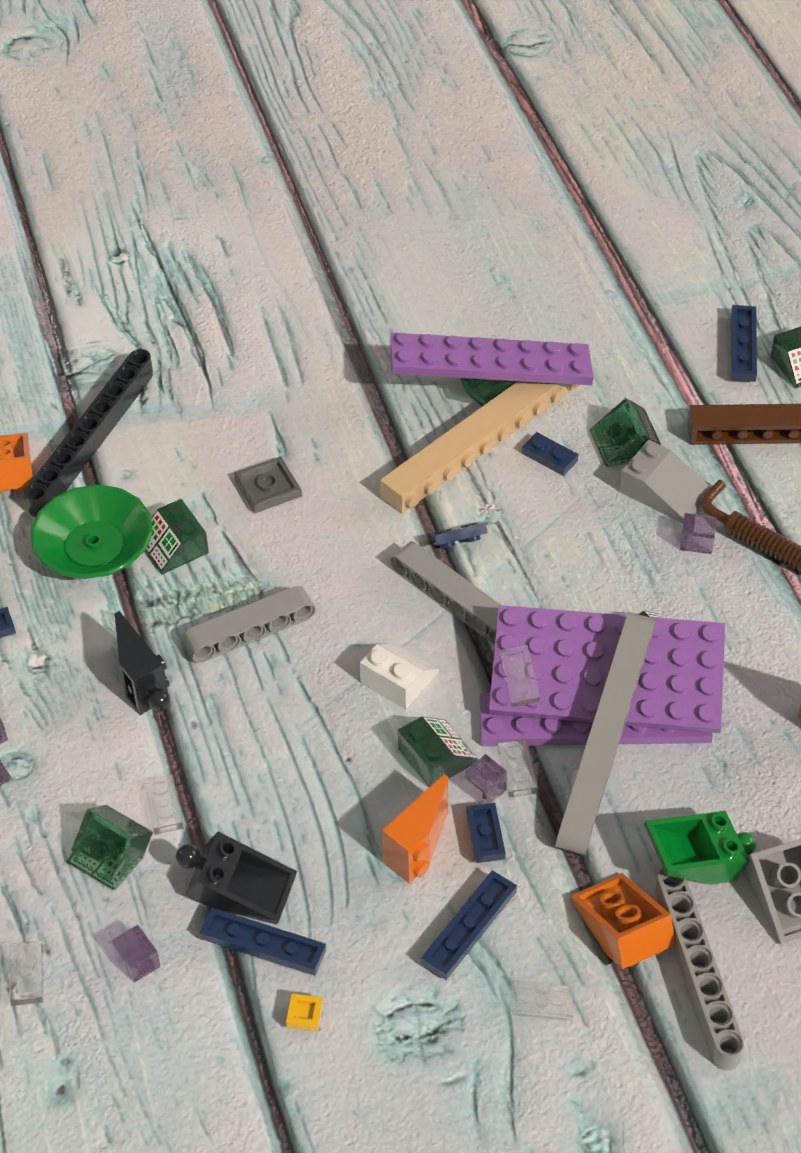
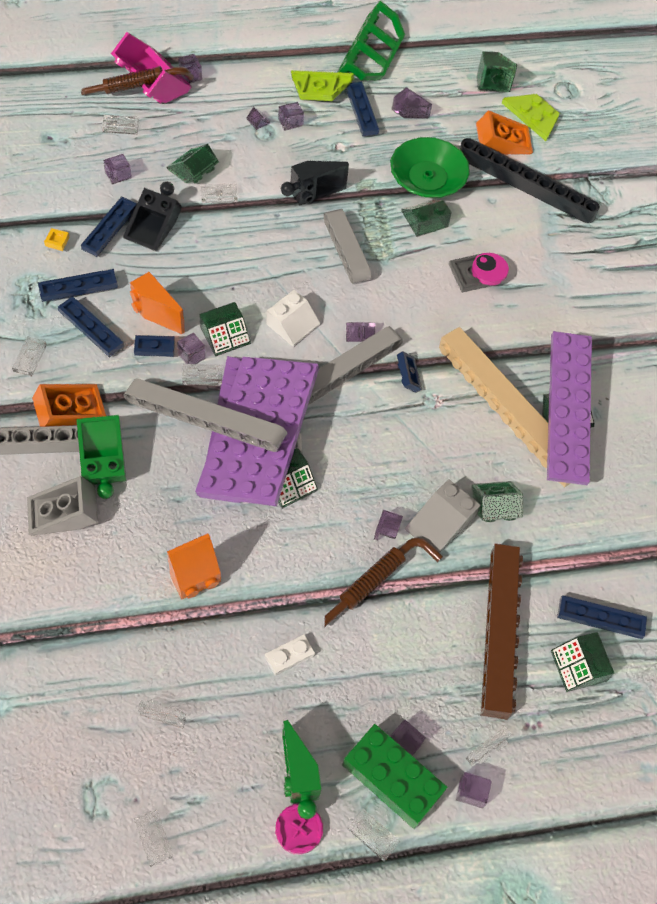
camera: 90 degrees right, 10 degrees up
(266, 459) = (490, 268): none -> dark pink tile
(394, 961) = (77, 285): none -> dark blue plate
(403, 591) = (359, 331): none -> clear purple panel
(519, 675) = (255, 366): clear plate -> none
(550, 453) = (486, 448): dark blue plate -> none

